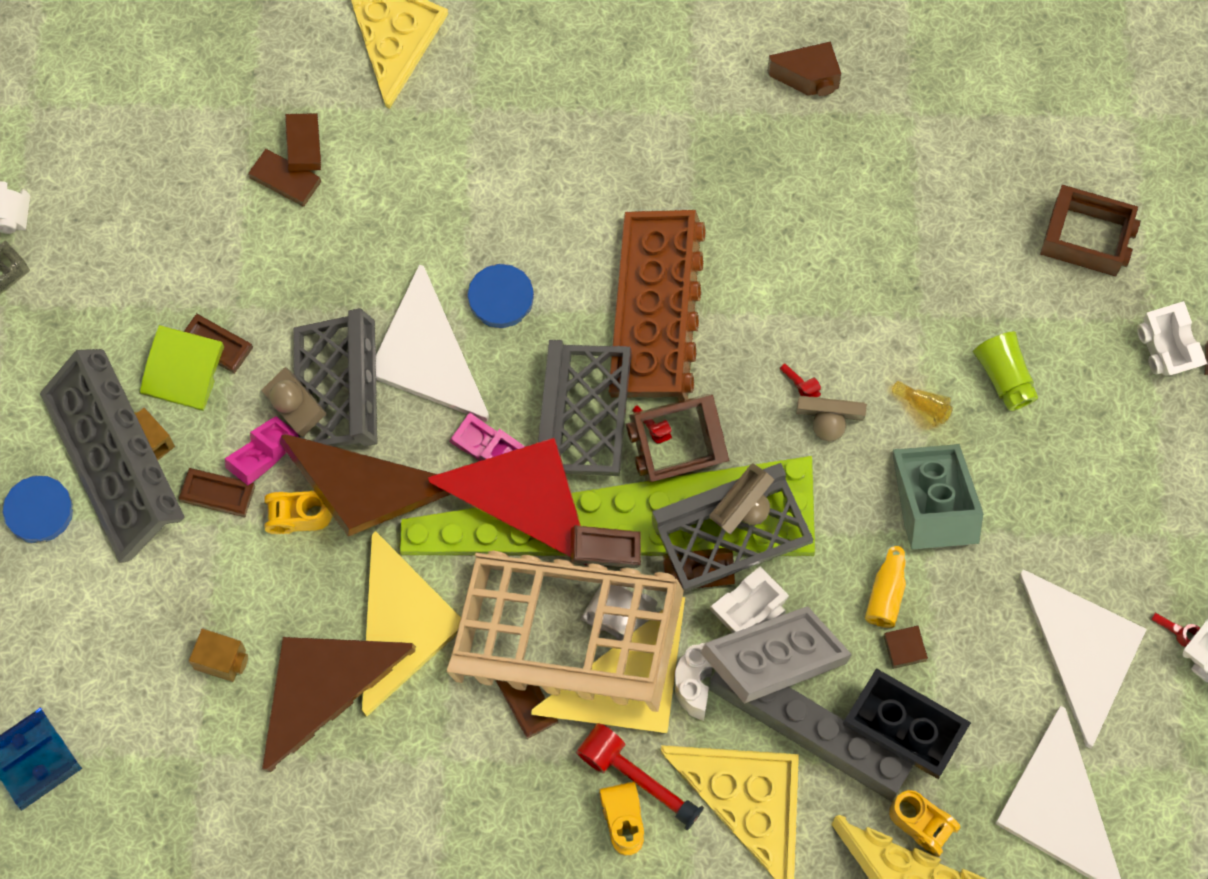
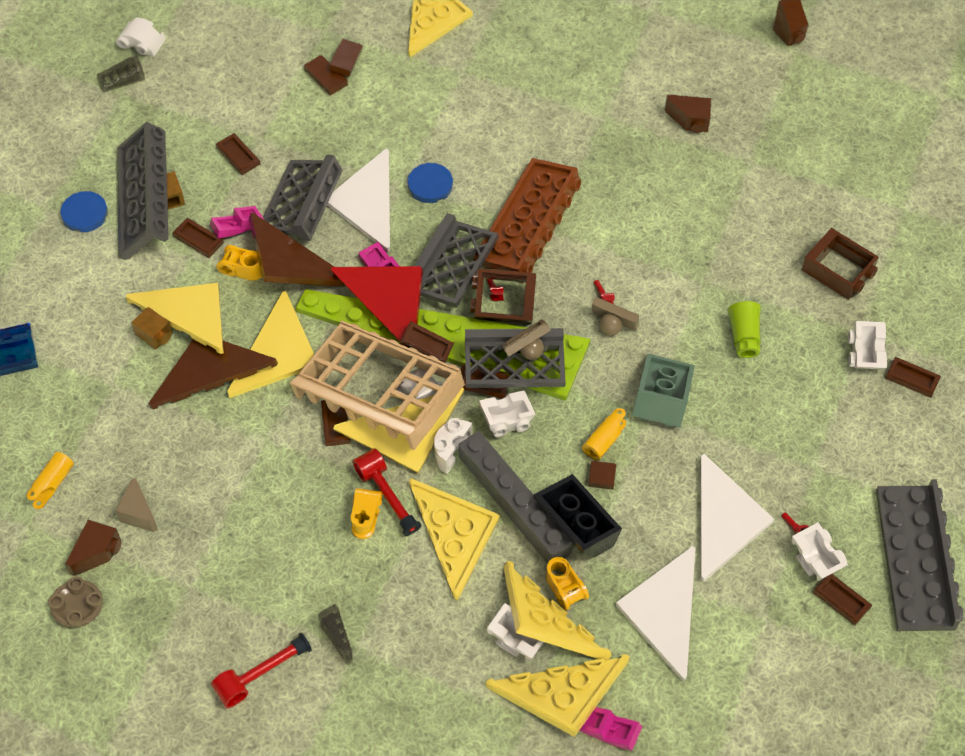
camera: 20 degrees right, 10 degrees down
(181, 367) = (209, 159): lime slope -> none
(256, 608) = (188, 310): none -> light yellow tile
(293, 402) = (269, 199): dark tan tile -> none
(775, 654) = (508, 442): light grey plate -> none
(931, 406) = (685, 335): clear yellow cone -> none

